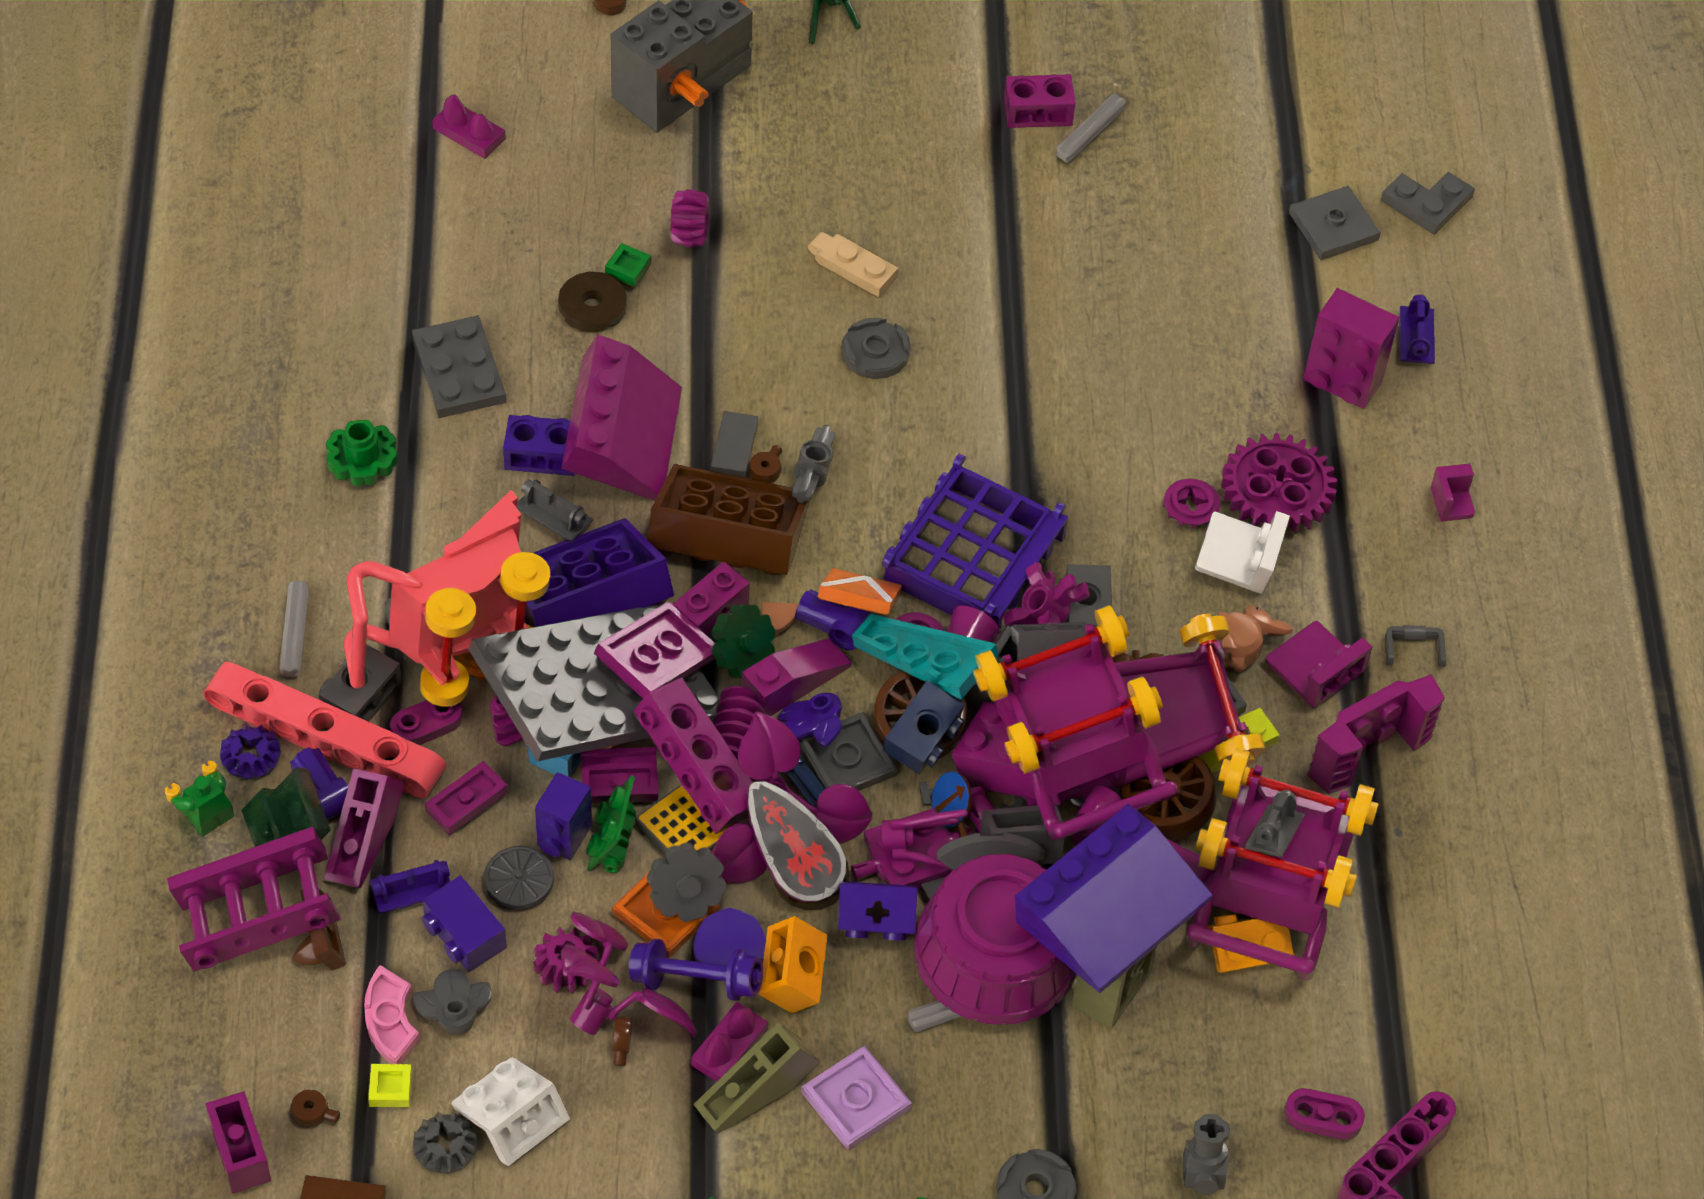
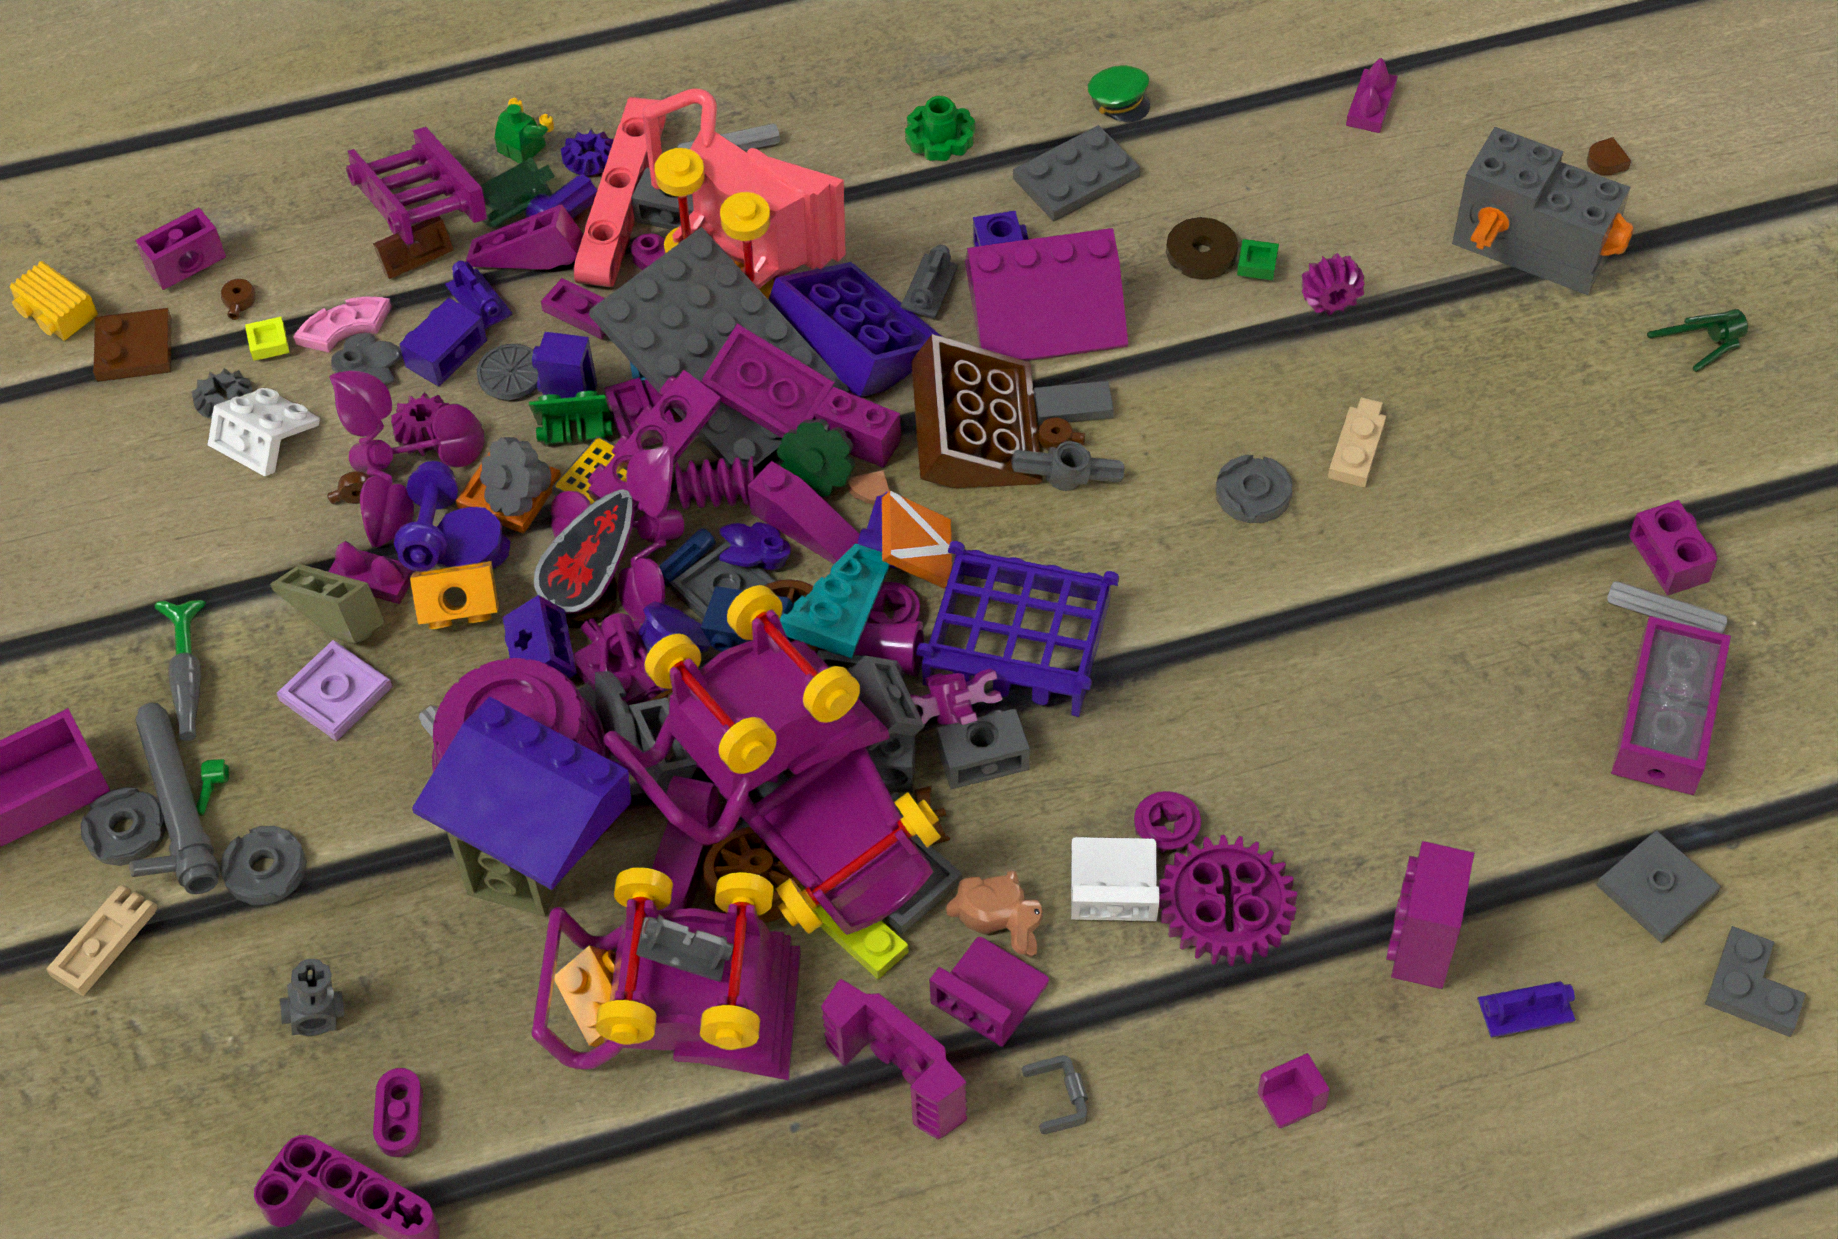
camera: 80 degrees right, 0 degrees up
(376, 301) = (1120, 93): none -> green piece
(904, 798) = (665, 621): none -> dark purple hat
(1191, 152) = (1671, 705): none -> brick

